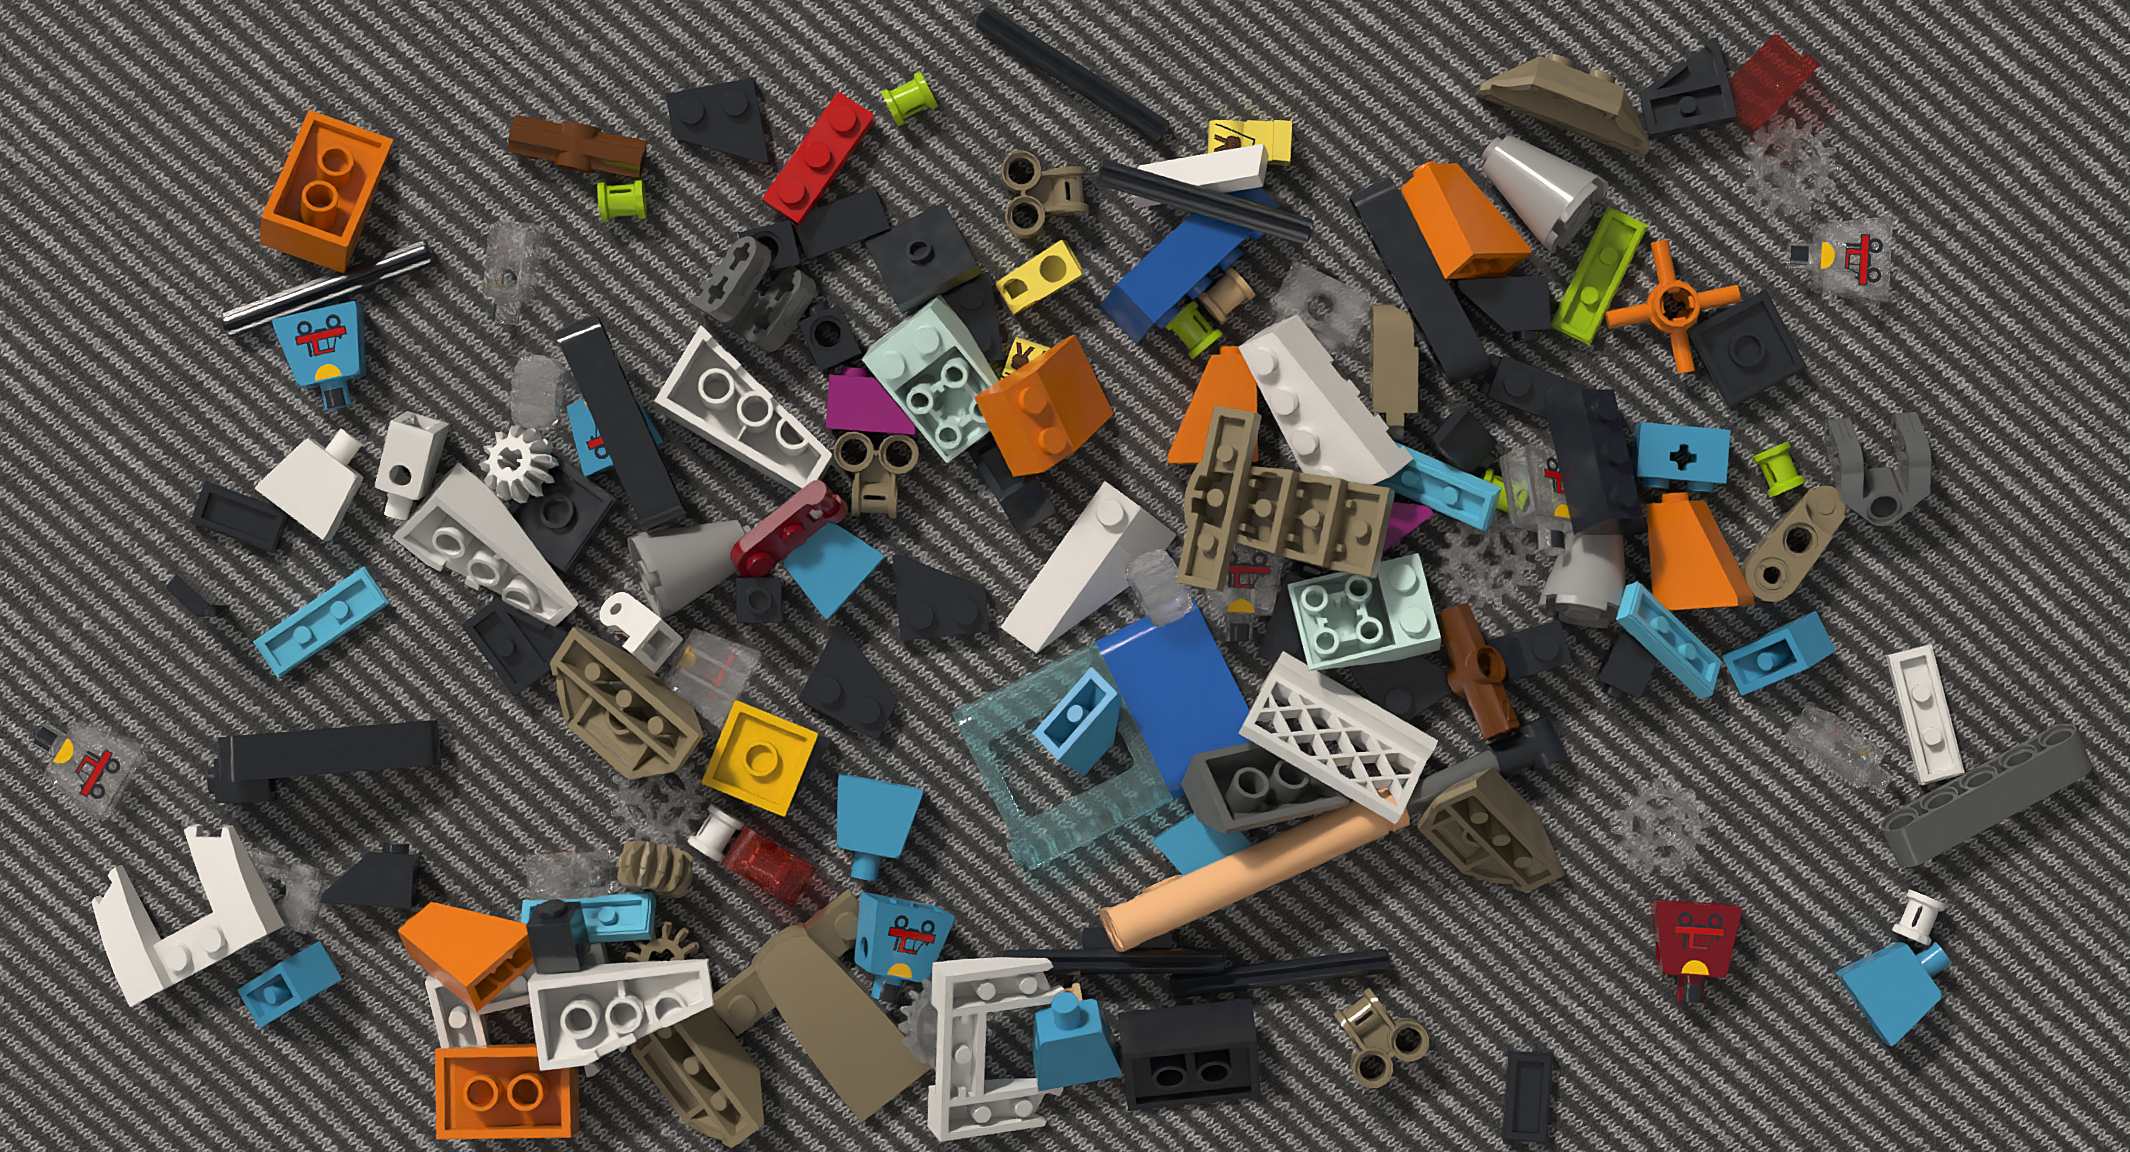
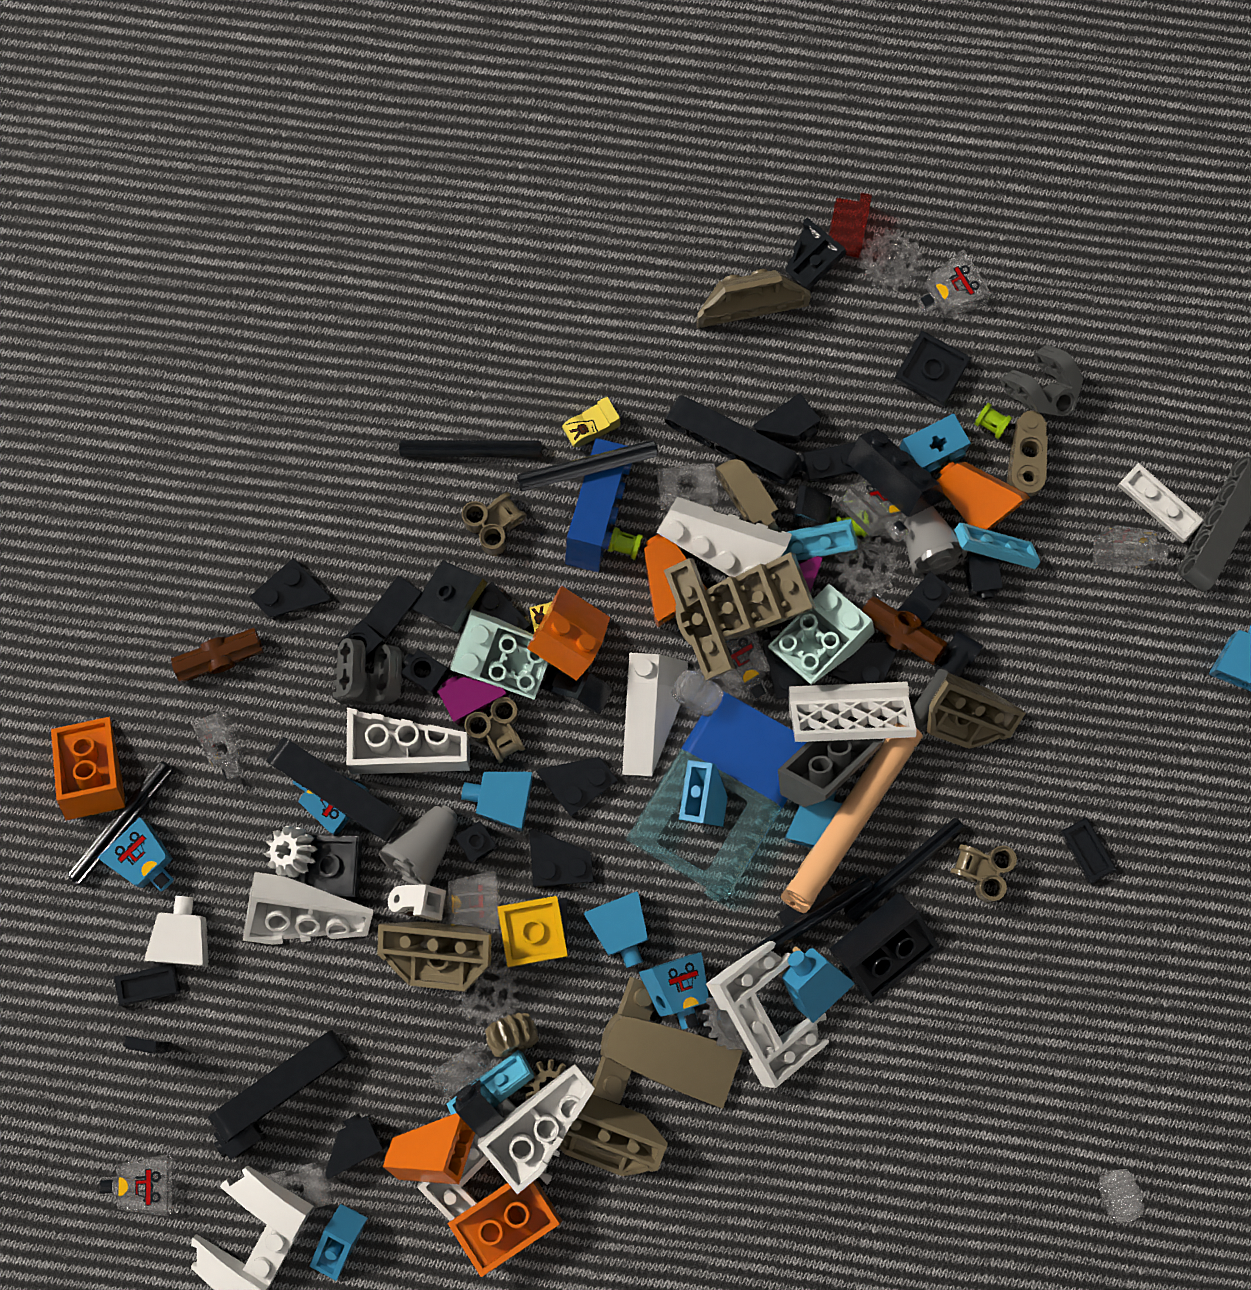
camera: 25 degrees left, 10 degrees down
(322, 622) = (230, 1016): medium azure tile -> none
(412, 443) = (223, 877): white torso -> none
(514, 643) = (350, 957): black wing -> none
(537, 392) = (277, 804): clear gear -> none
(622, 200) = (260, 669): lime bush -> none
(715, 832) = (533, 992): white bush -> none
(768, 865) = (576, 992): clear red piece -> none
(787, 529) = (466, 790): dark red plate -> none
(818, 159) = (357, 579): red plate -> none
(909, 99) = (388, 515): lime bush -> none
(1040, 277) = (522, 567): light yellow leg -> none
(1216, 171) = (585, 445): white tile -> none
(1226, 295) = (631, 513): tan bush -> none
(1462, 224) = (735, 394): orange slope -> none
(1543, 189) = (767, 350): light grey cone -> none
(1598, 276) = (827, 380): lime tile -> none
(1645, 843) = (1072, 652): clear gear -> none
(1681, 291) = (876, 359): orange bar -> none
(1693, 942) = (1121, 704): dark red torso -> none
(1779, 653) = (1060, 518): dark azure slope -> none
(1919, 905) = (1237, 603): white bush -> none

